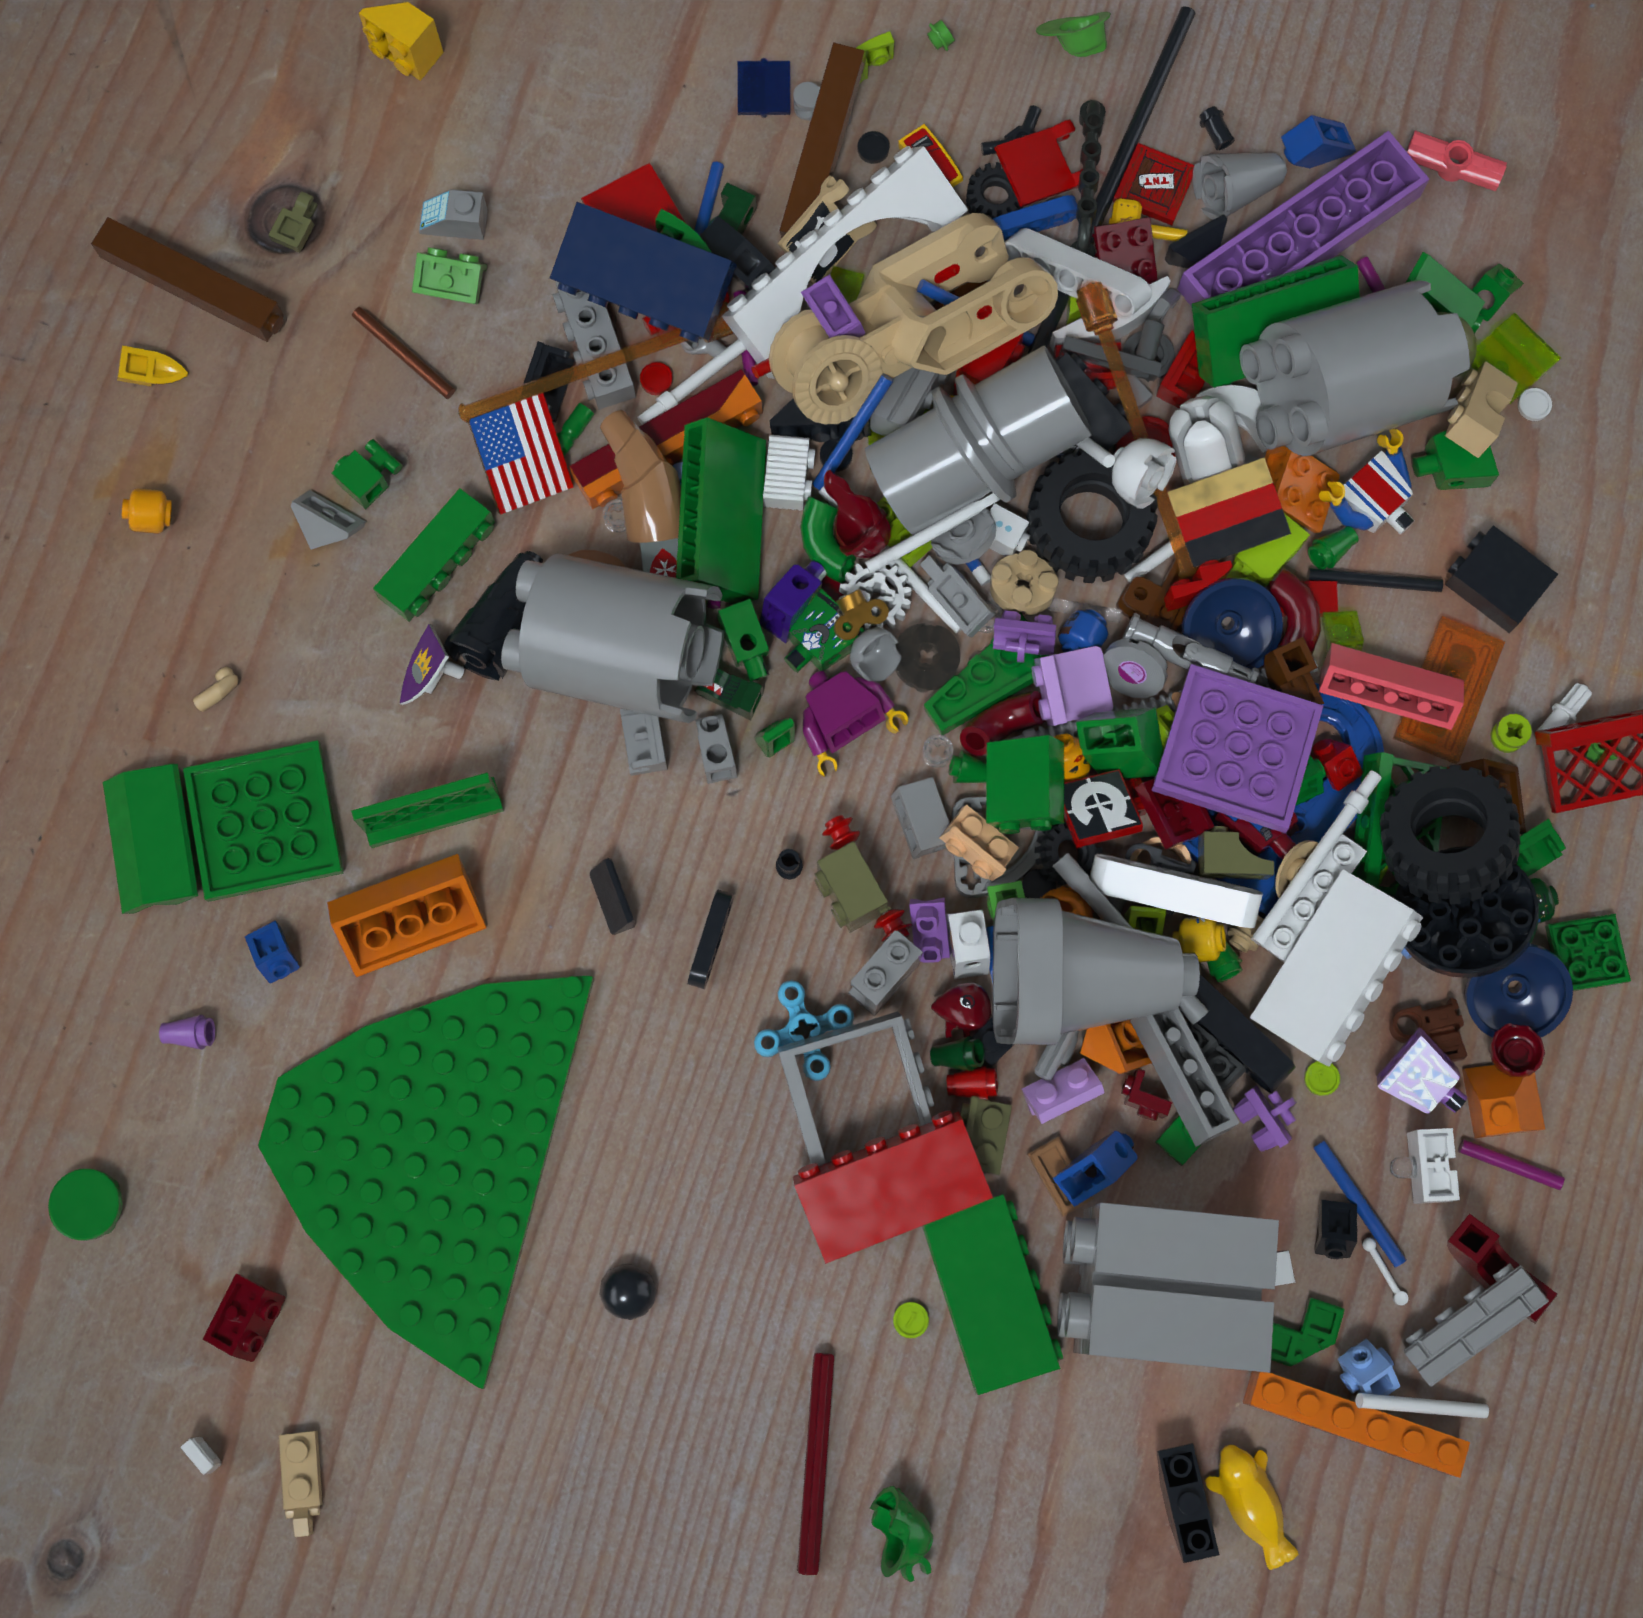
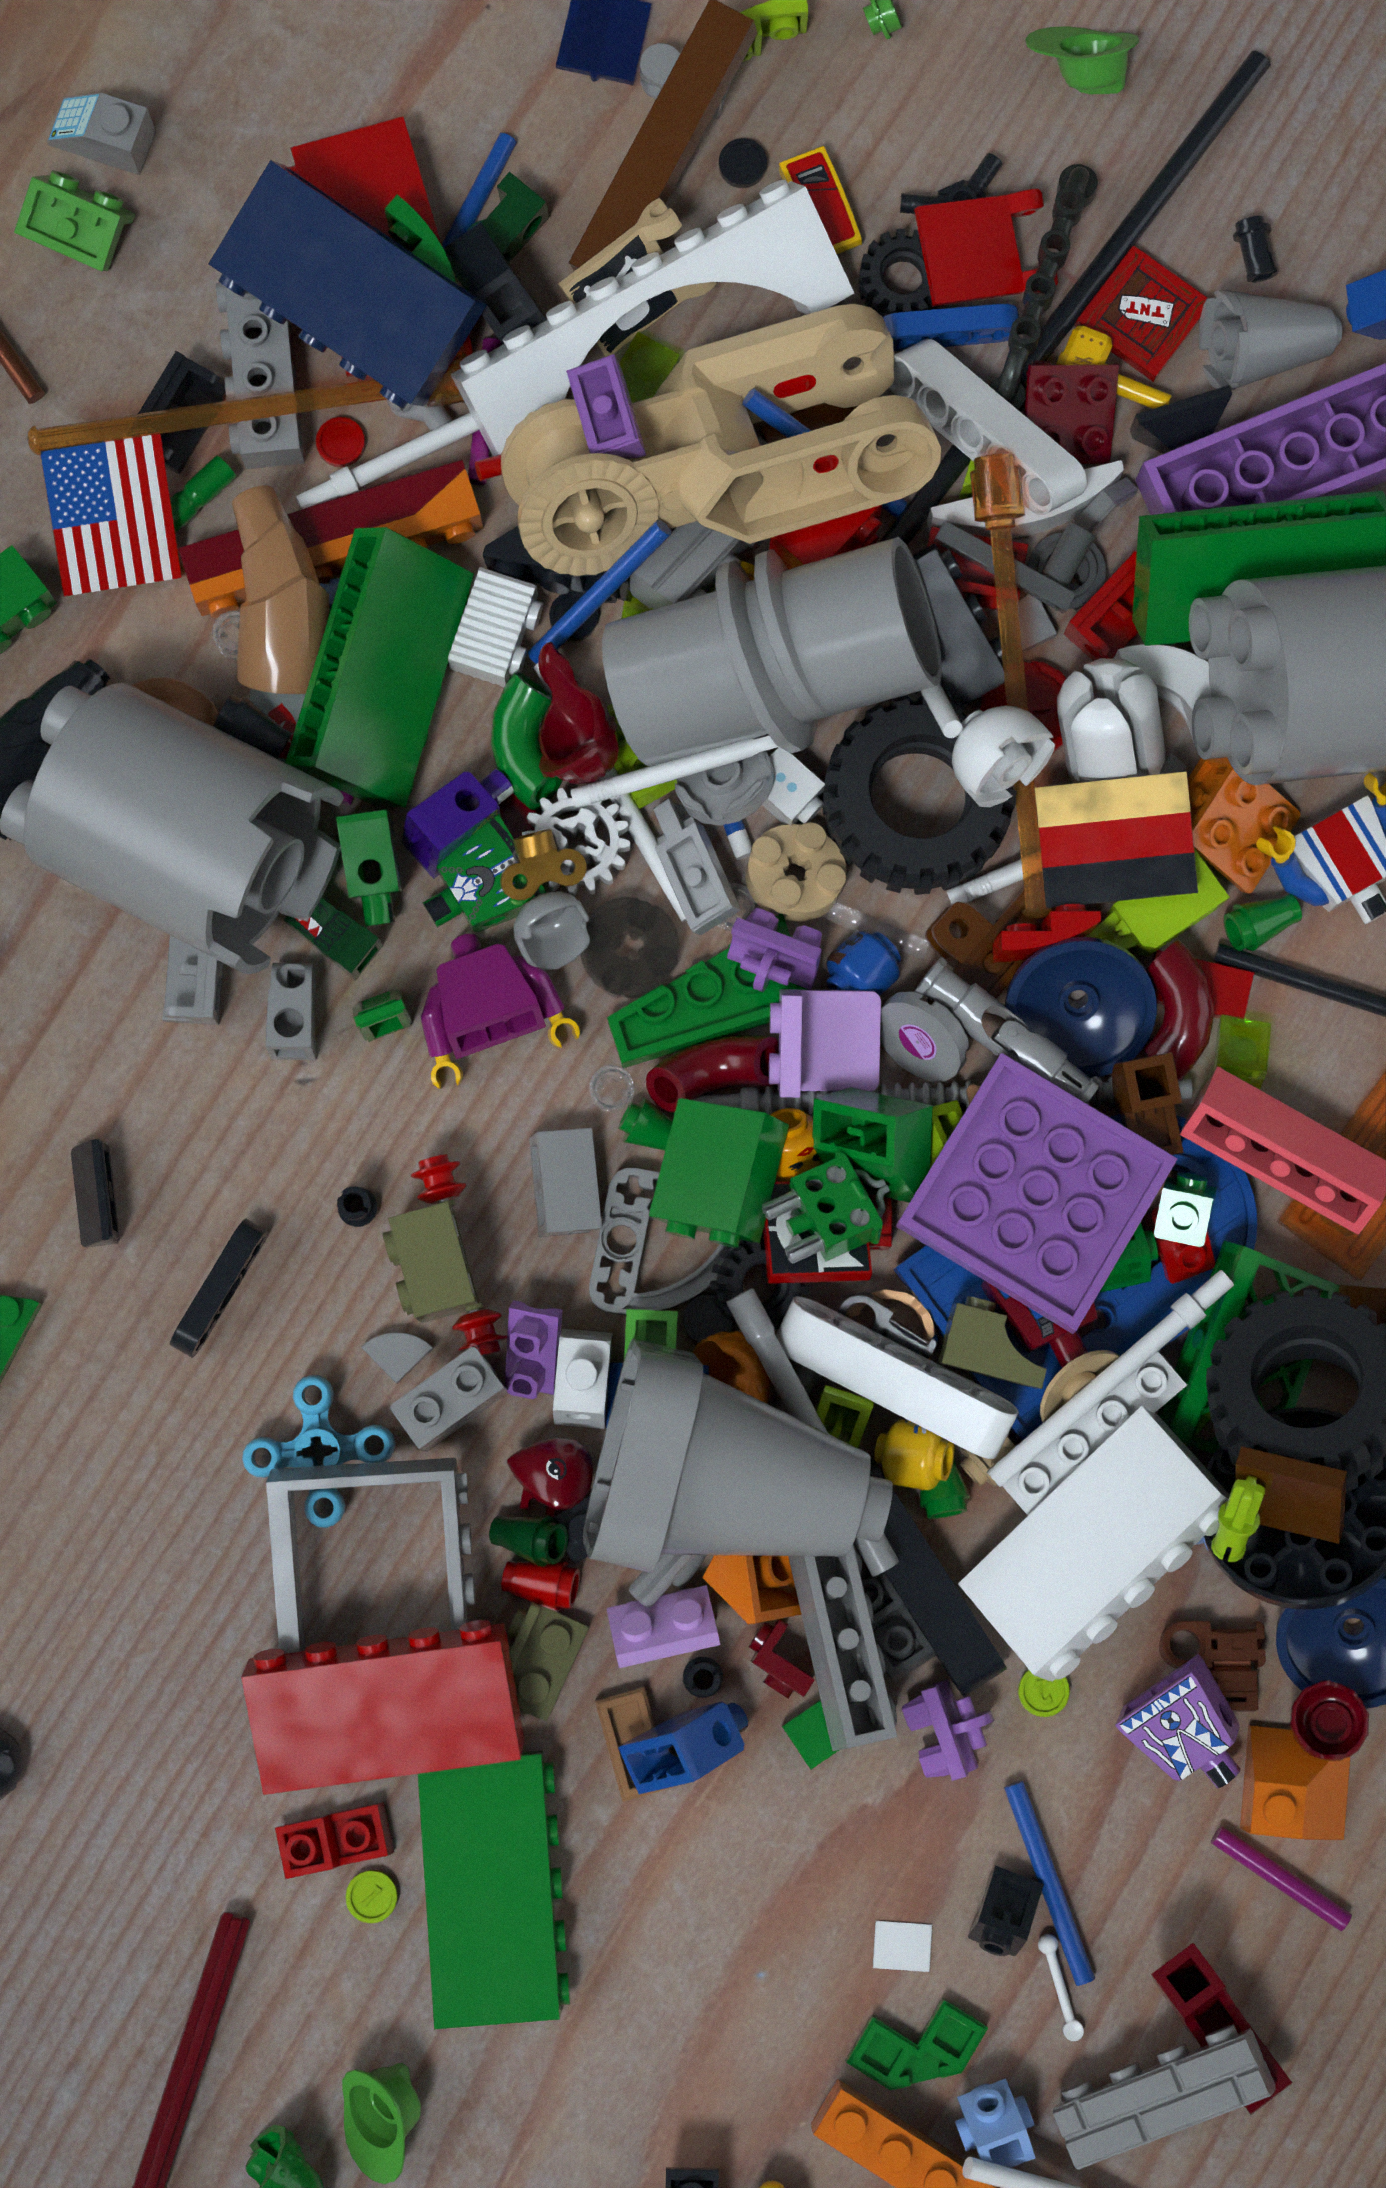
camera: 10 degrees right, 5 degrees up
(648, 562) = (252, 725): none -> black cone
(838, 955) = (397, 1353): none -> light grey tile
(877, 1287) = (334, 1840): none -> red slope
(953, 1467) = (378, 2117): none -> bright green piece
(978, 844) = (632, 1241): light nougat bracket -> none
(1087, 1121) = (698, 1664): none -> black pin
(1107, 789) = (847, 1206): none -> green piece
(1170, 1286) = (735, 1951): light grey brick -> none
(1173, 818) = (918, 1273): dark red bracket -> none
(1336, 739) = (1185, 1209): none -> bracket
(1429, 922) = (1238, 1518): none -> lime axle
(1429, 1166) = (1159, 1856): white piece -> none
(1458, 899) = (1297, 1494): none -> reddish brown tile

